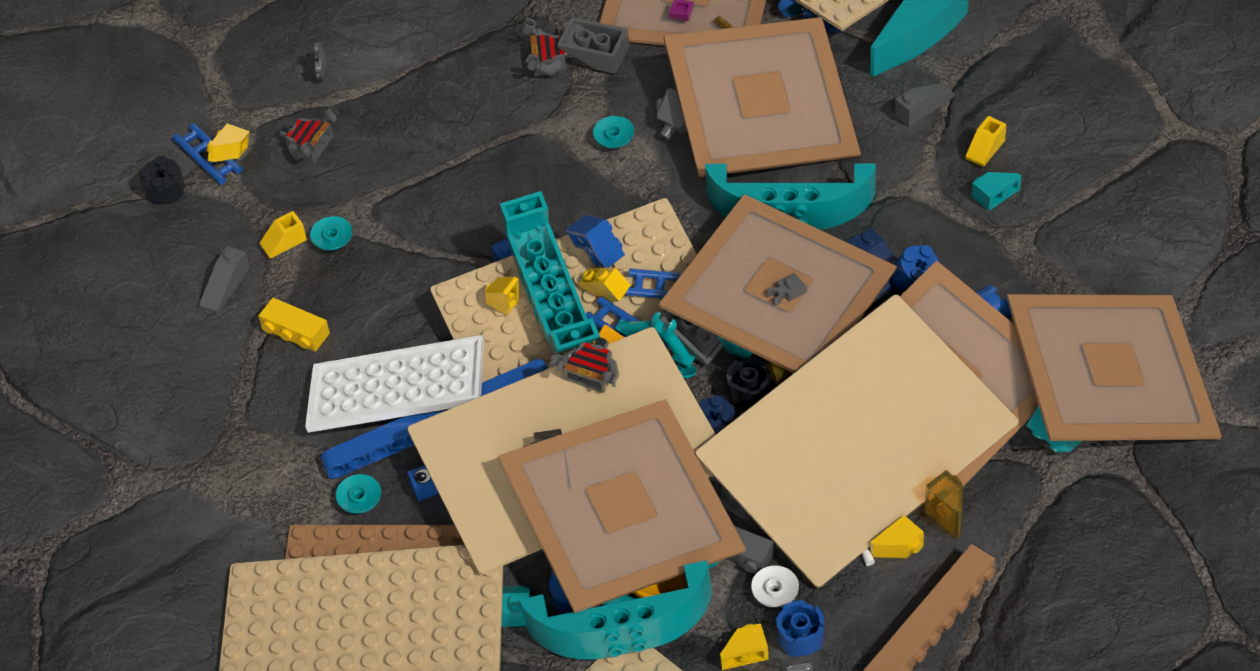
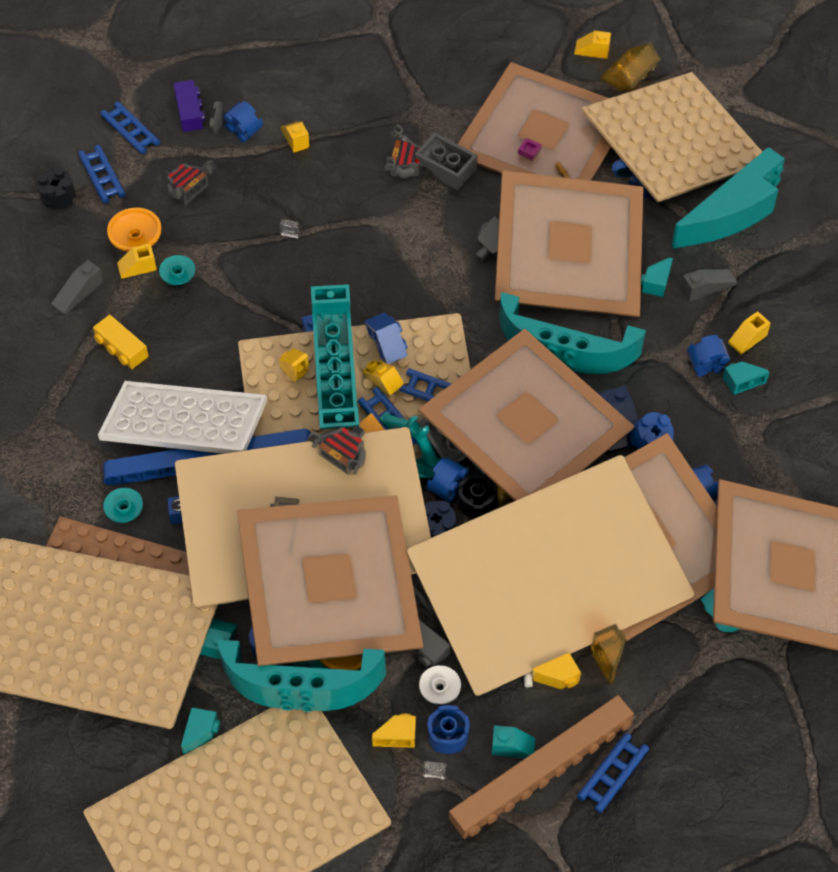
camera: 10 degrees right, 5 degrees up
(219, 87) = (129, 136): none -> blue bar
(228, 144) = (119, 170): yellow slope -> none
(267, 200) = (134, 228): none -> light orange dish
(282, 56) = (189, 105): none -> dark purple brick
(350, 57) = (242, 121): none -> blue brick
(415, 59) = (296, 136): none -> yellow slope
(442, 158) = (289, 228): none -> clear tile
(613, 132) = (438, 236): teal dish -> none
(710, 373) = (447, 479): none -> blue brick
(788, 288) = (534, 423): dark grey plate -> none
(866, 110) = (656, 278): none -> teal slope
(872, 624) = (512, 742): none -> teal slope
(950, 175) = (708, 355): none -> blue brick
(997, 638) = (616, 784): none -> blue bar

